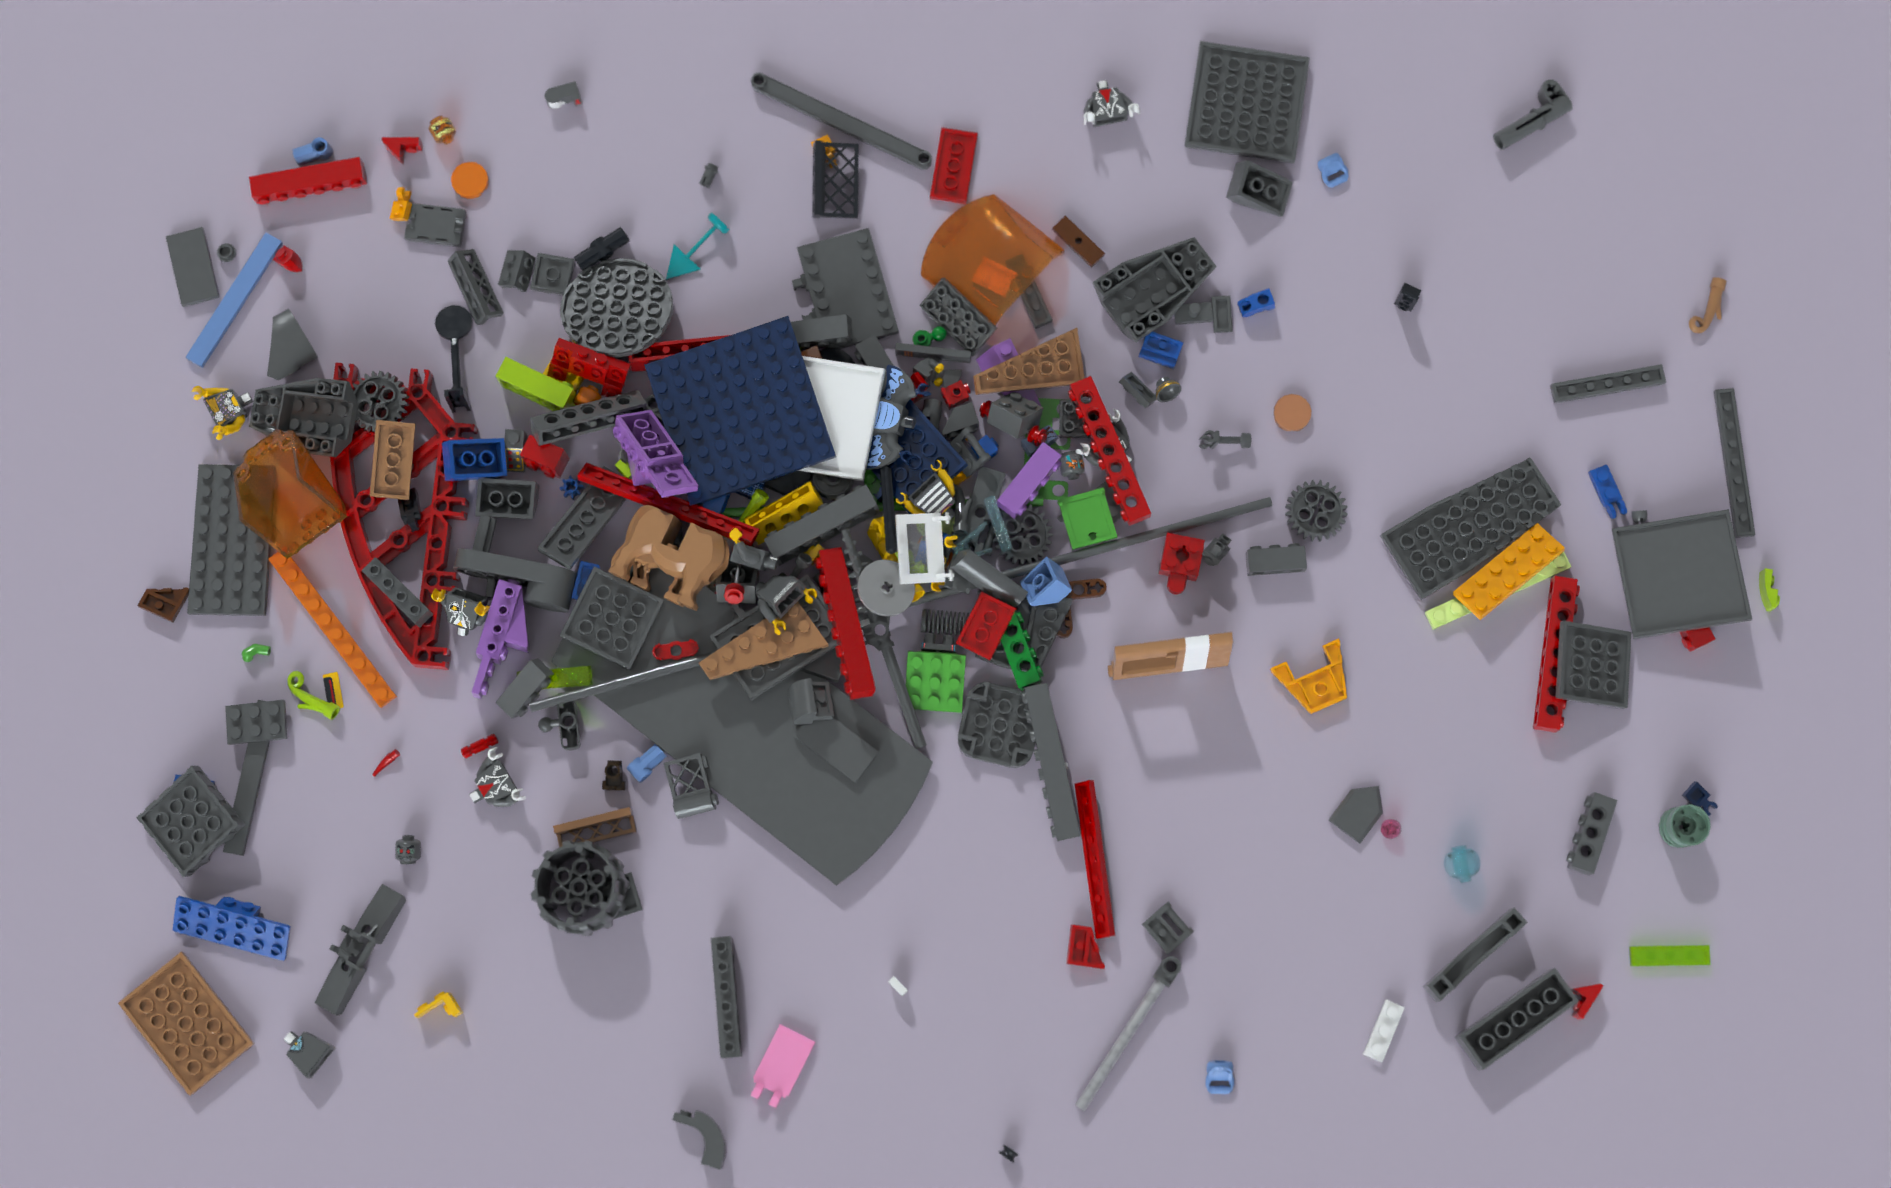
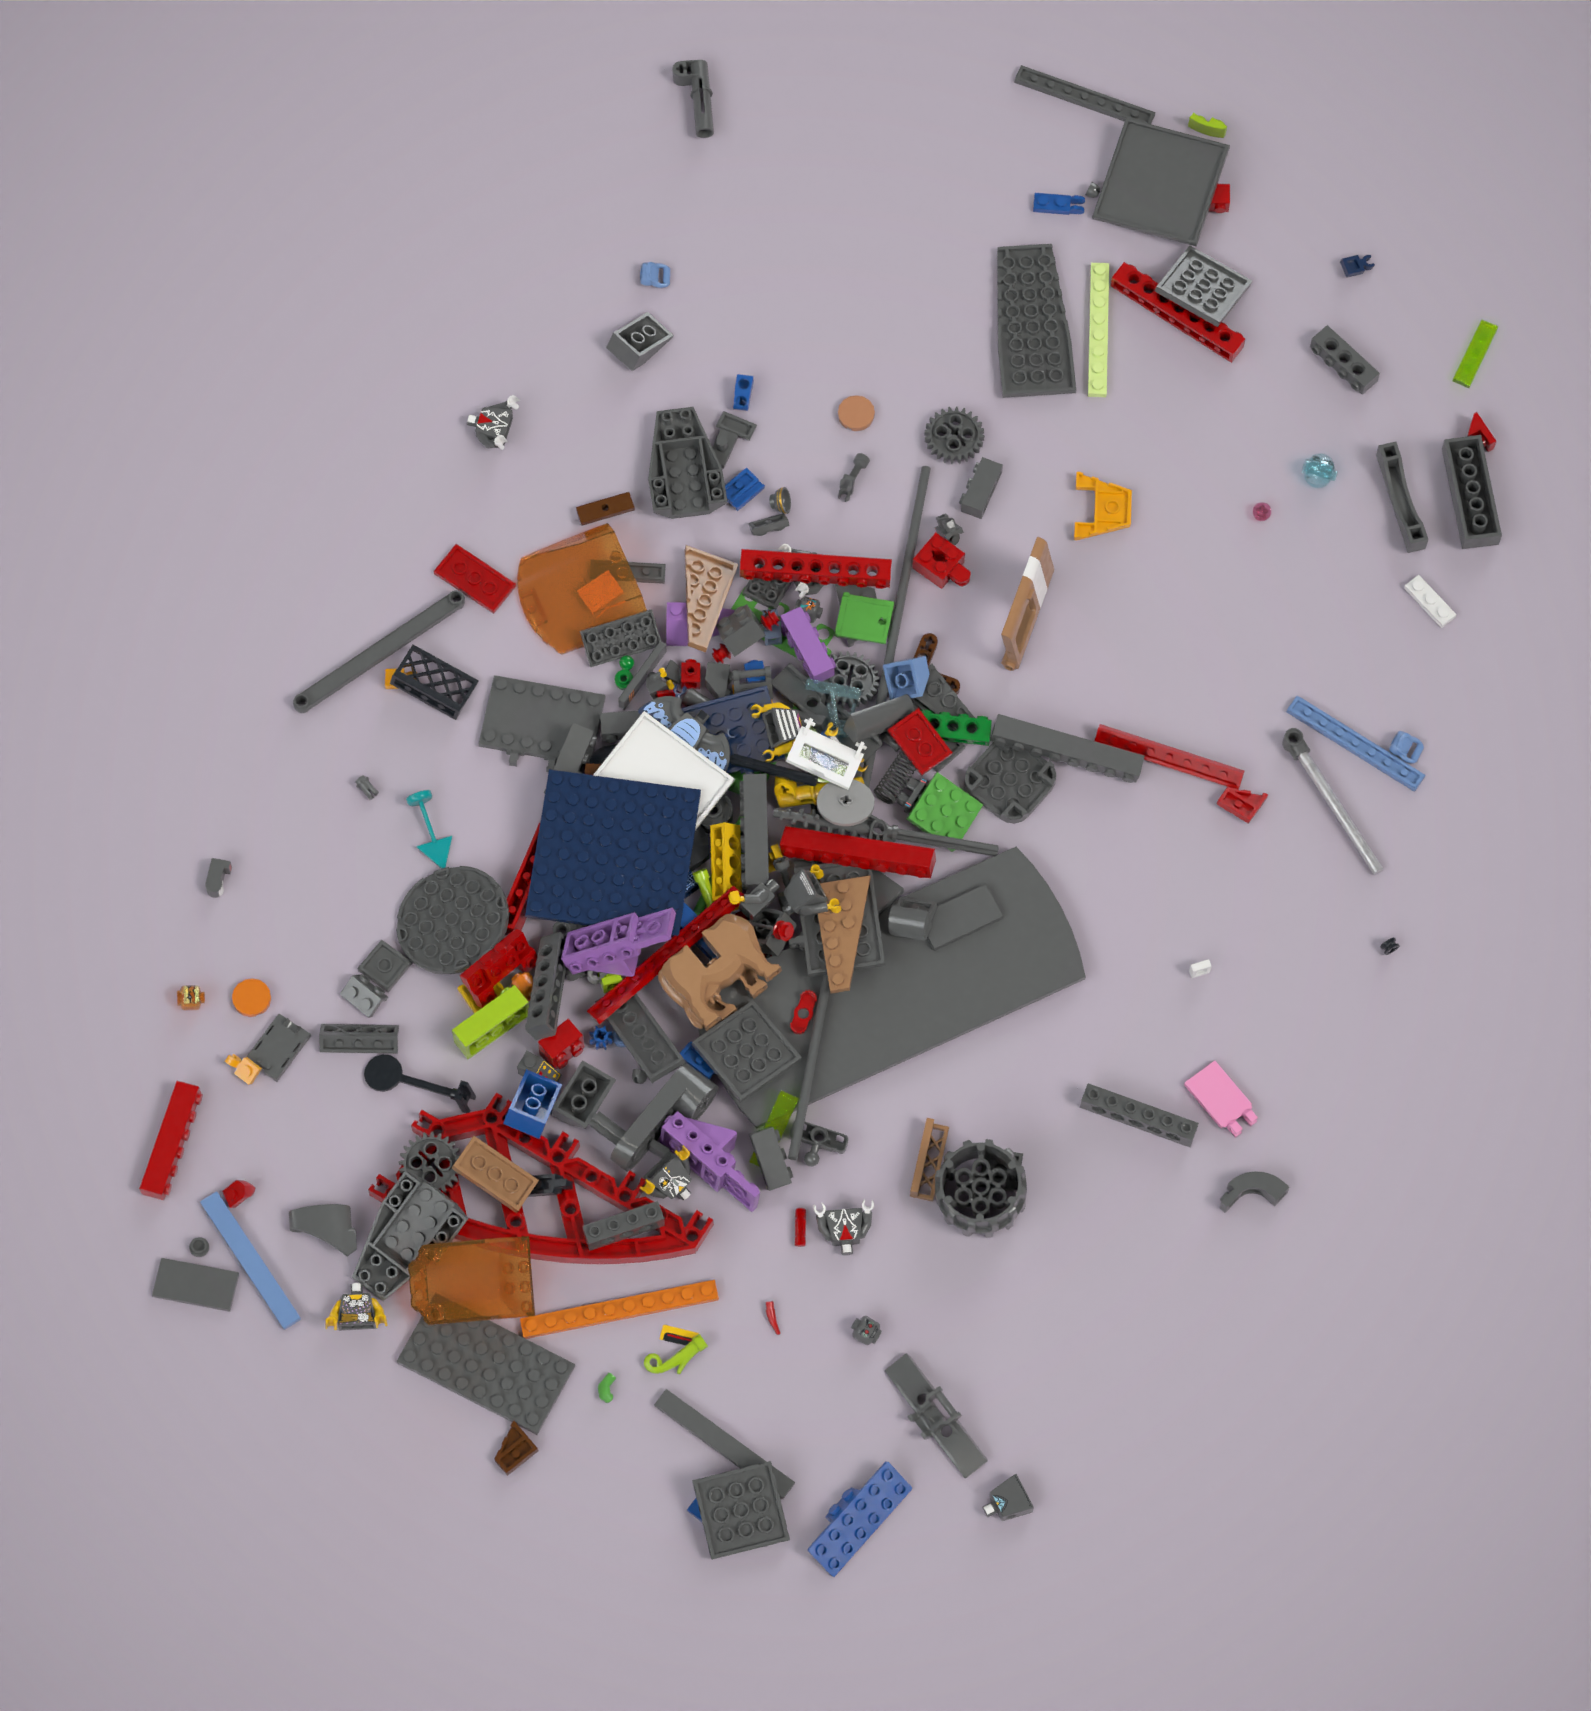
camera: 65 degrees left, 10 degrees down
(186, 1023) = (927, 1599): medium nougat plate -> none
(256, 722) = (676, 1413): dark grey plate -> none
(311, 151) = (143, 1125): medium blue piece -> none
(398, 145) = (183, 1046): red slope -> none
(451, 1005) = (1029, 1355): yellow bracket -> none
(601, 248) = (386, 910): black piece -> none
(612, 780) = (894, 1123): dark brown plate -> none
(643, 766) = (893, 1092): medium blue piece -> none
(696, 801) = (949, 1061): dark grey piece -> none
(1162, 932) = (1261, 732): dark grey plate -> none
(1200, 1027) = (1355, 743): none -> medium blue tile
(1247, 102) = (553, 312): dark grey plate -> none
(1358, 812) = (1234, 531): dark grey tile -> none
(1407, 297) = (804, 272): black bracket -> none
(1508, 571) = (1088, 311): light orange plate -> none
(1608, 383) = (965, 157): dark grey plate -> none
(1695, 826) = (1374, 285): sand green wheel -> none
(1713, 306) = (941, 45): medium nougat plant -> none

